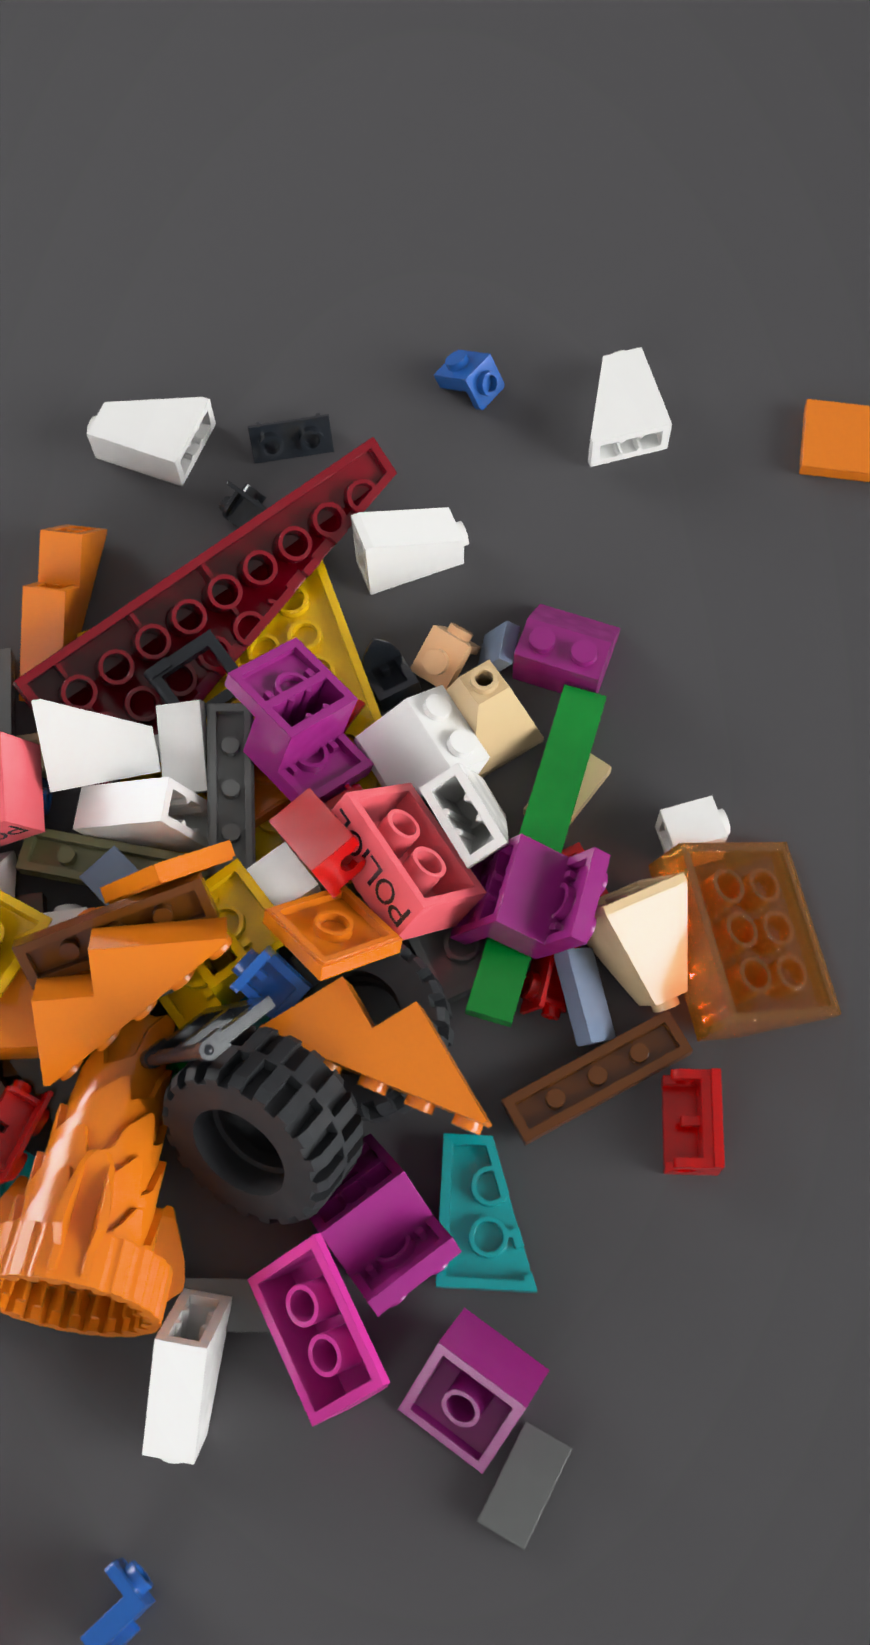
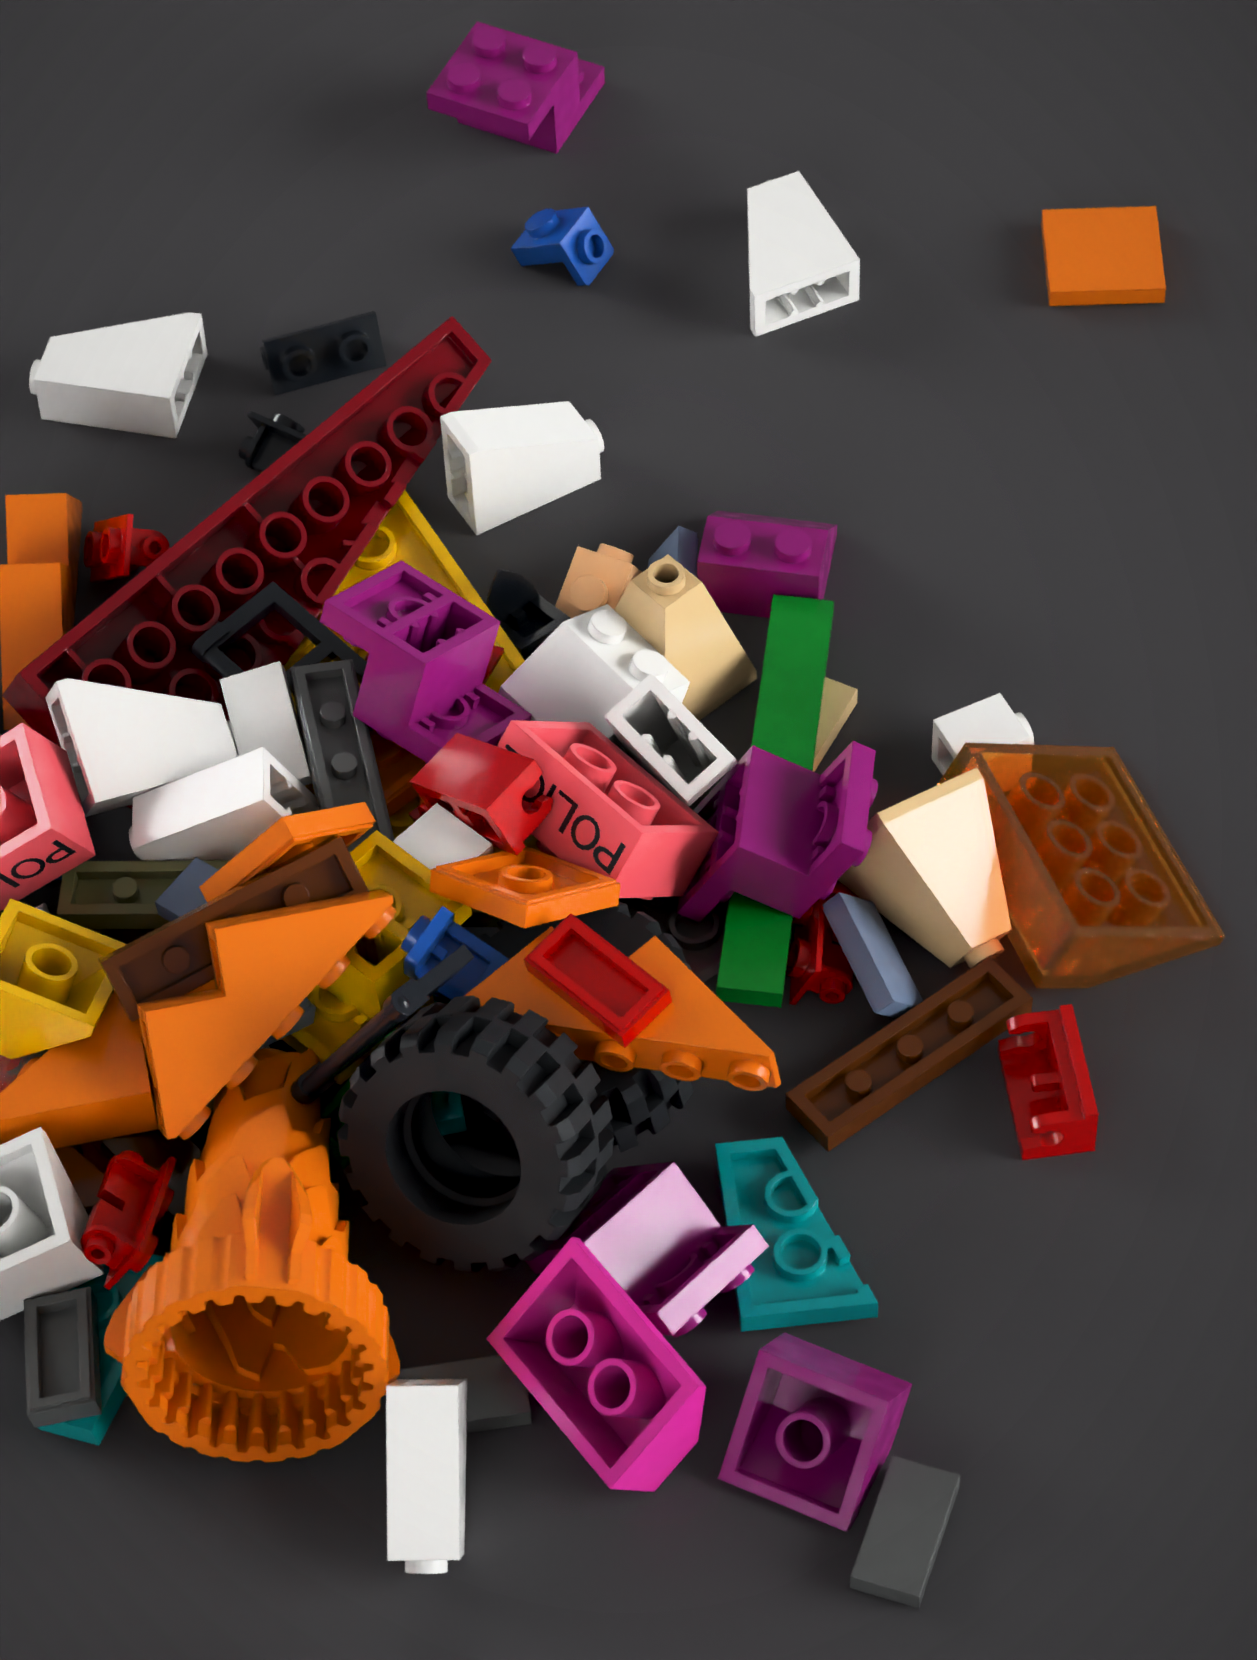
camera: 10 degrees left, 15 degrees down
(120, 578) = (119, 548): none -> red hinge
(366, 1033) = (598, 980): none -> red tile
(457, 252) = (516, 87): none -> magenta bracket

